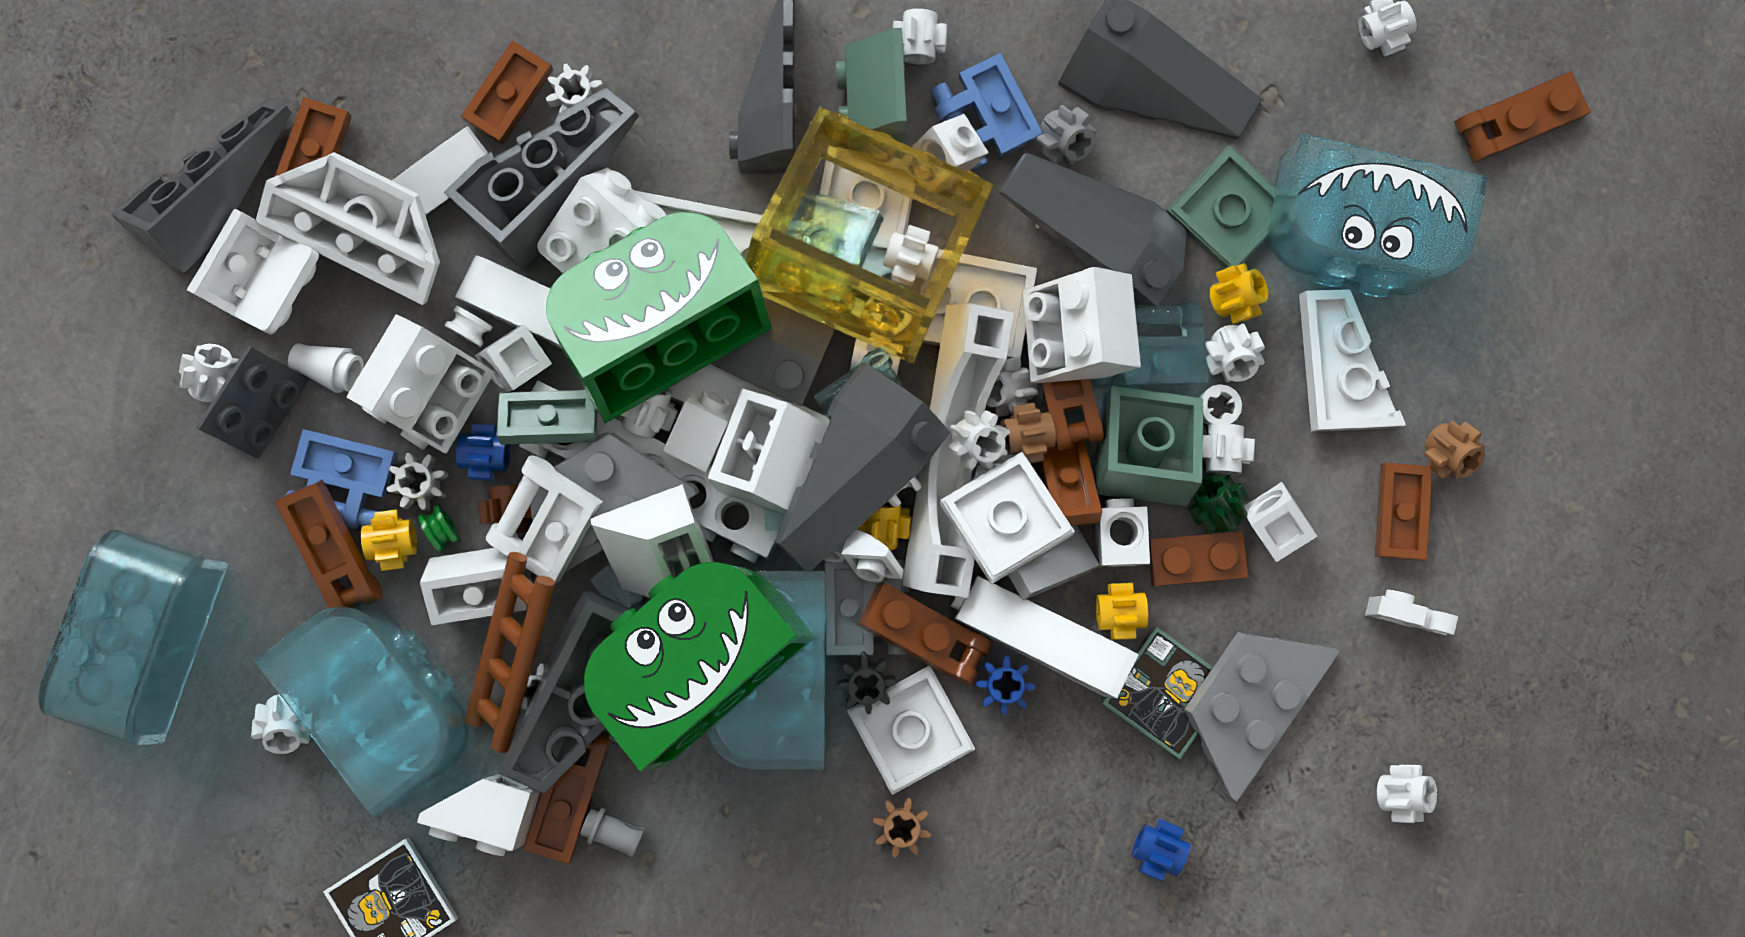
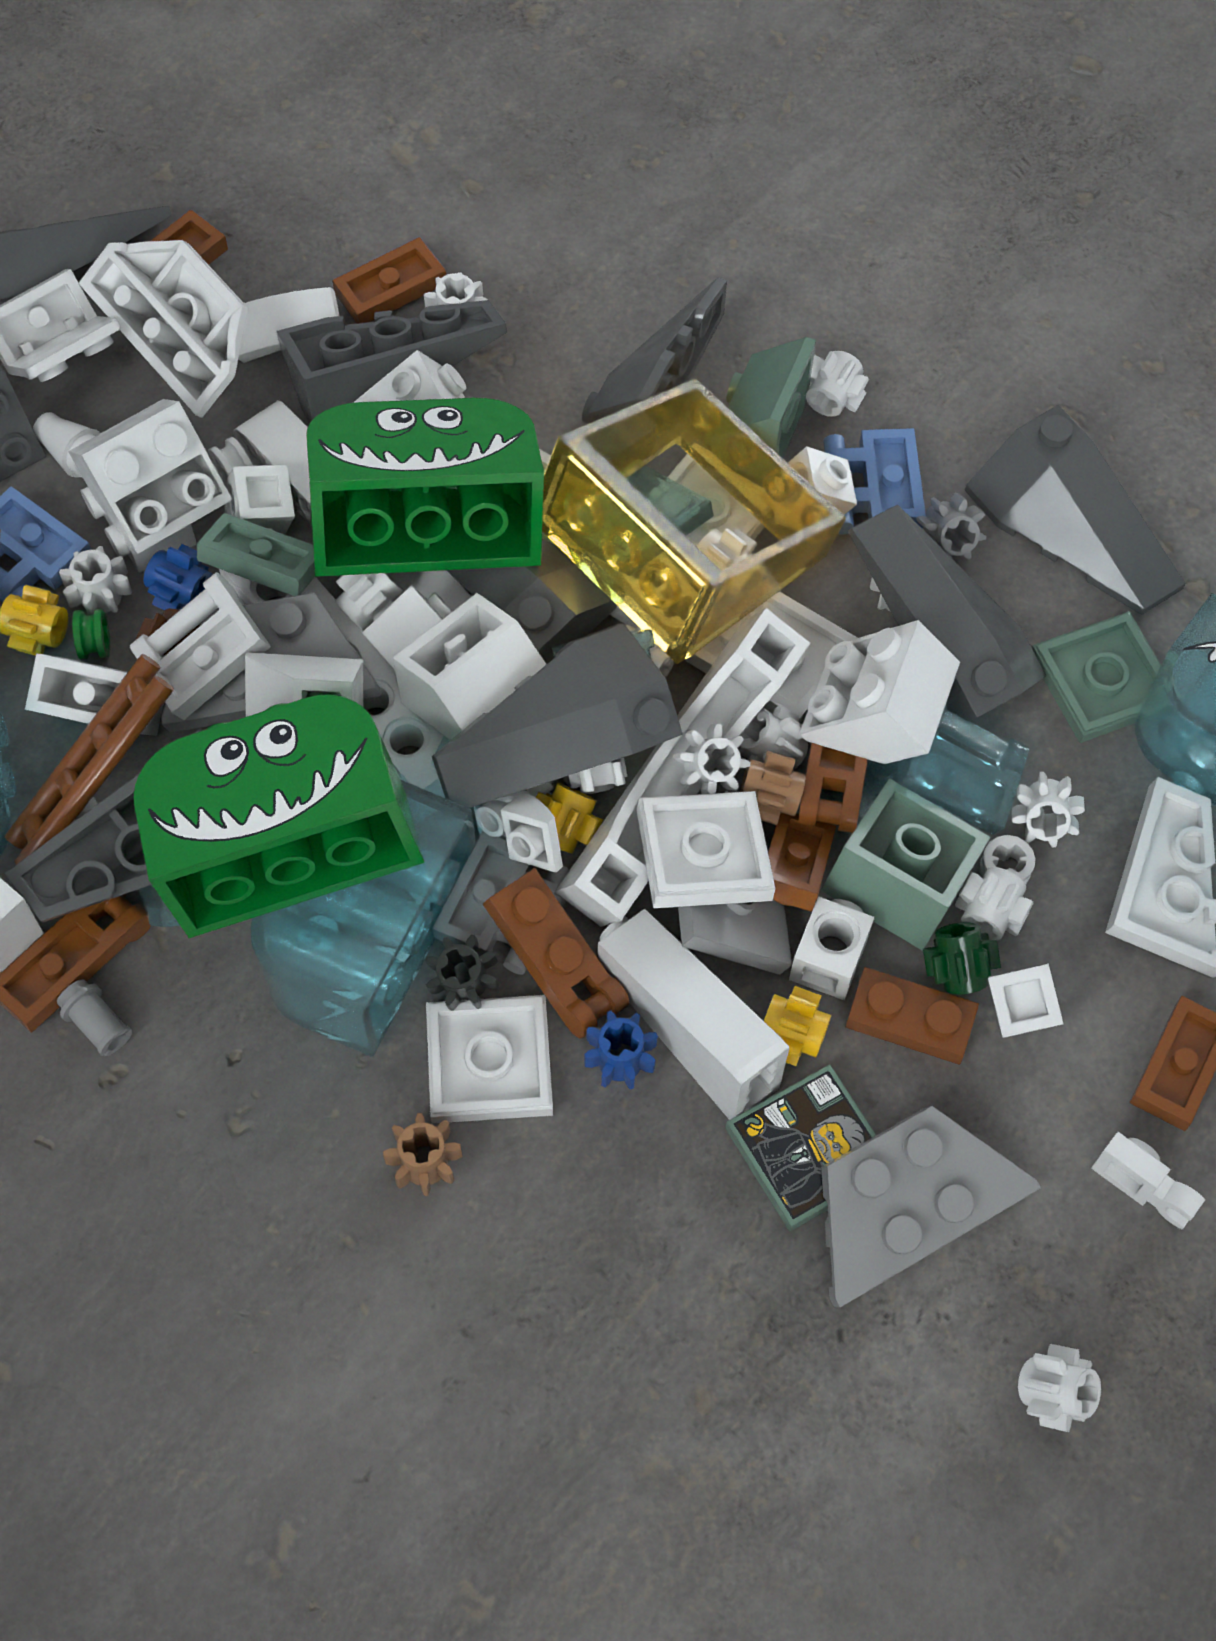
camera: 30 degrees right, 20 degrees down
(1160, 850) = (720, 1317): blue gear -> none
(1239, 293) = (1078, 751): yellow gear -> none

